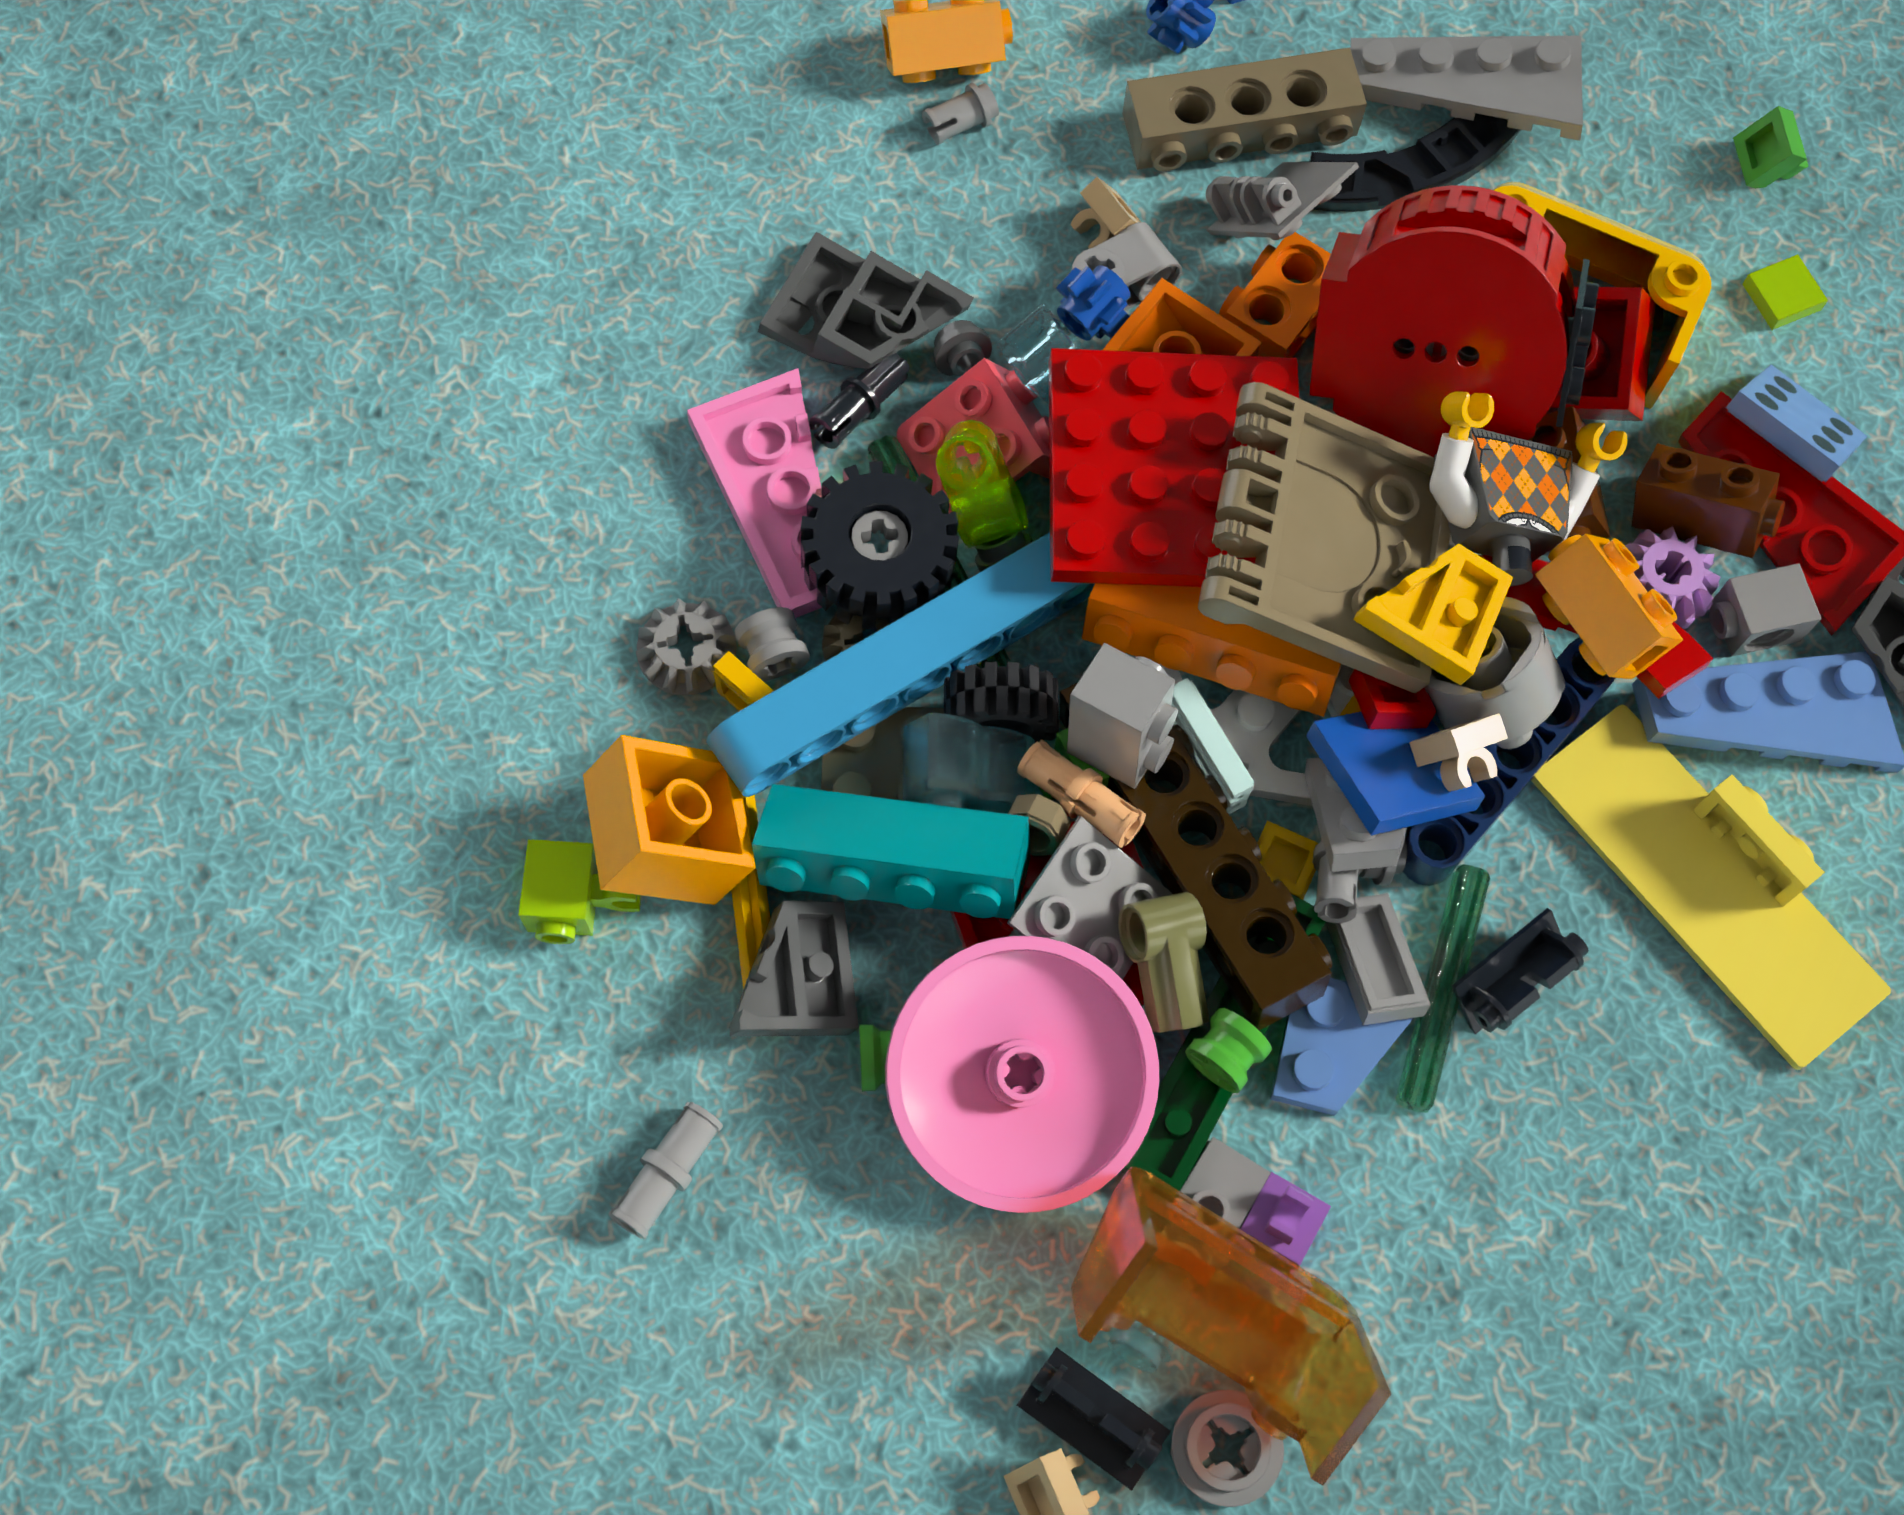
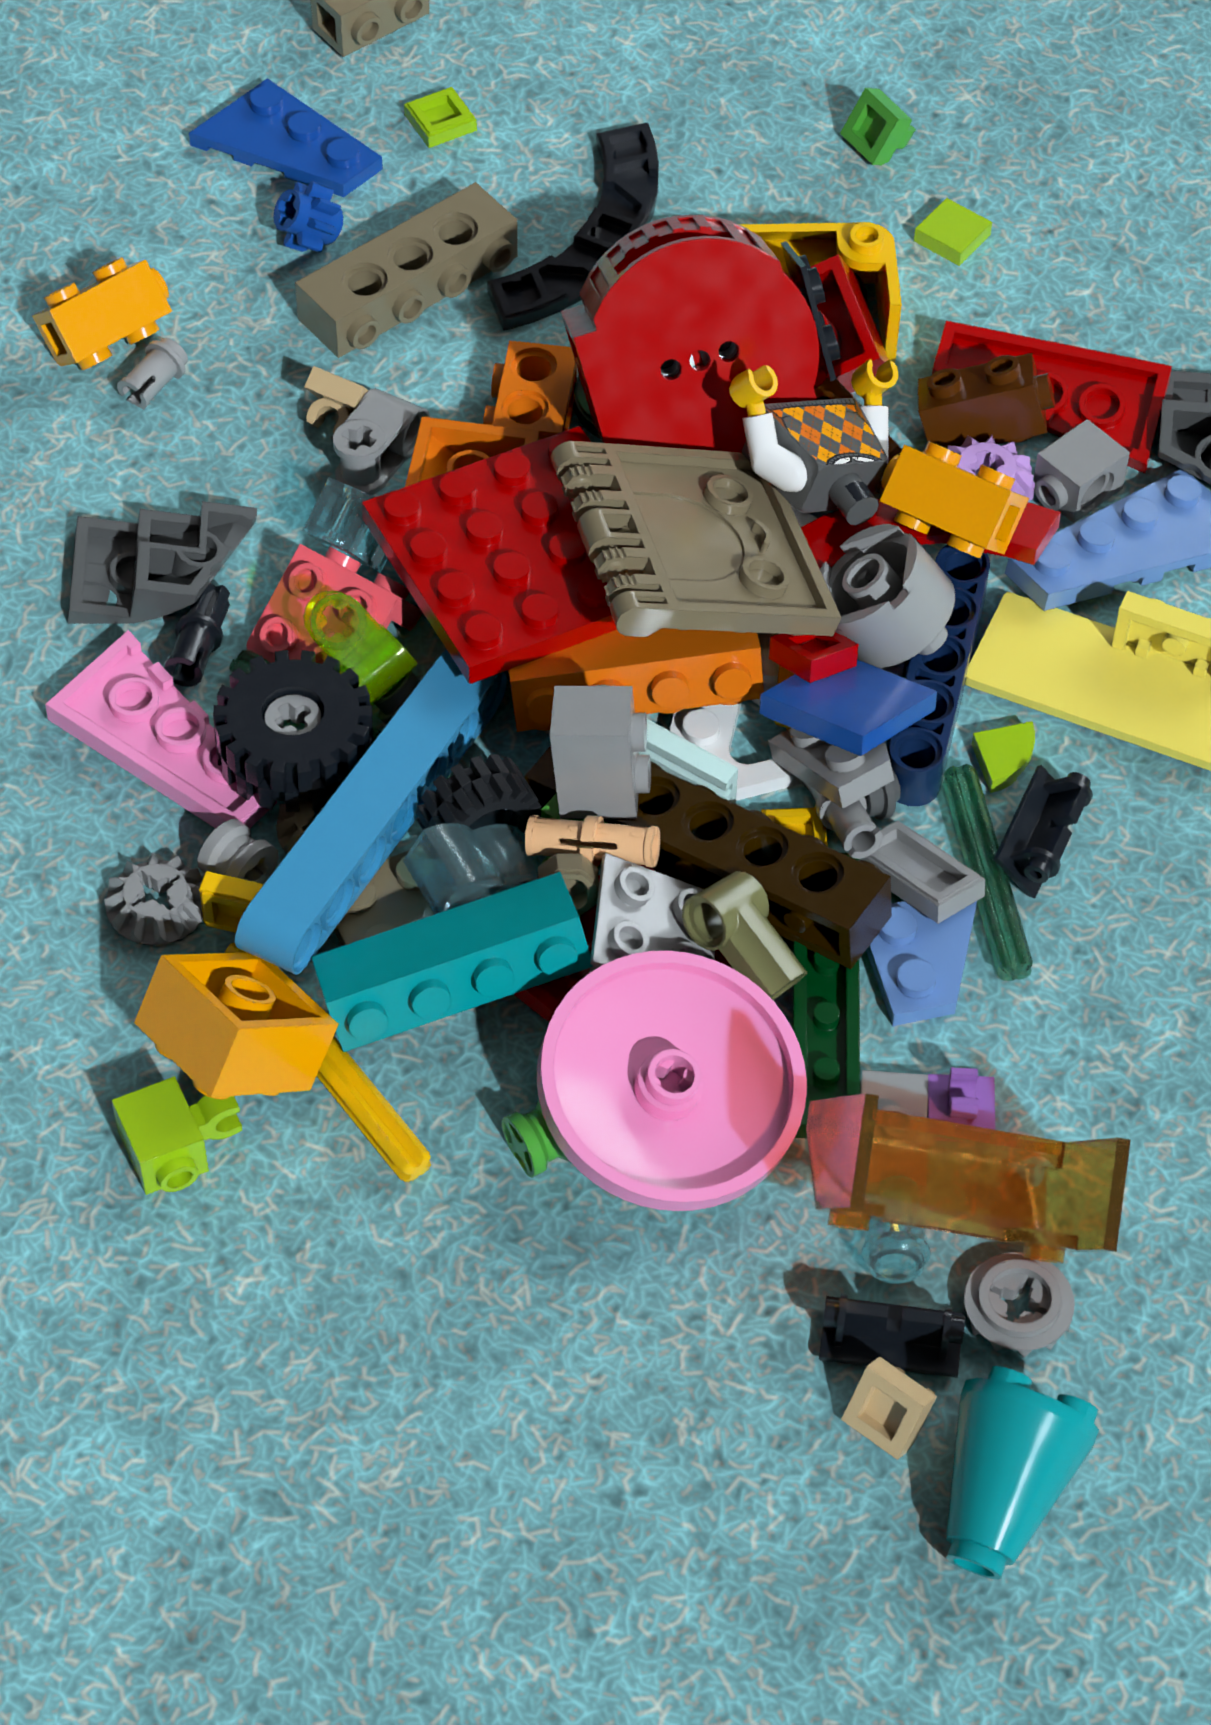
camera: 25 degrees left, 15 degrees down
(665, 1170) = (395, 1319): light grey pin -> none
(800, 976) = (426, 1105): dark grey wing -> none
(960, 347) = (267, 555): dark grey plate -> none
(1093, 302) = (373, 459): blue gear -> none
(1228, 1050) = (838, 984): bright green wheel -> none
(1276, 203) = (477, 327): light grey hinge -> none
(1441, 612) = (820, 555): yellow wing -> none
(1460, 748) = (897, 659): tan tile -> none
(1493, 76) = (609, 159): light grey wing -> none
(1528, 871) = (1004, 753): none -> lime tile
(1796, 423) = (1021, 319): medium blue tile -> none

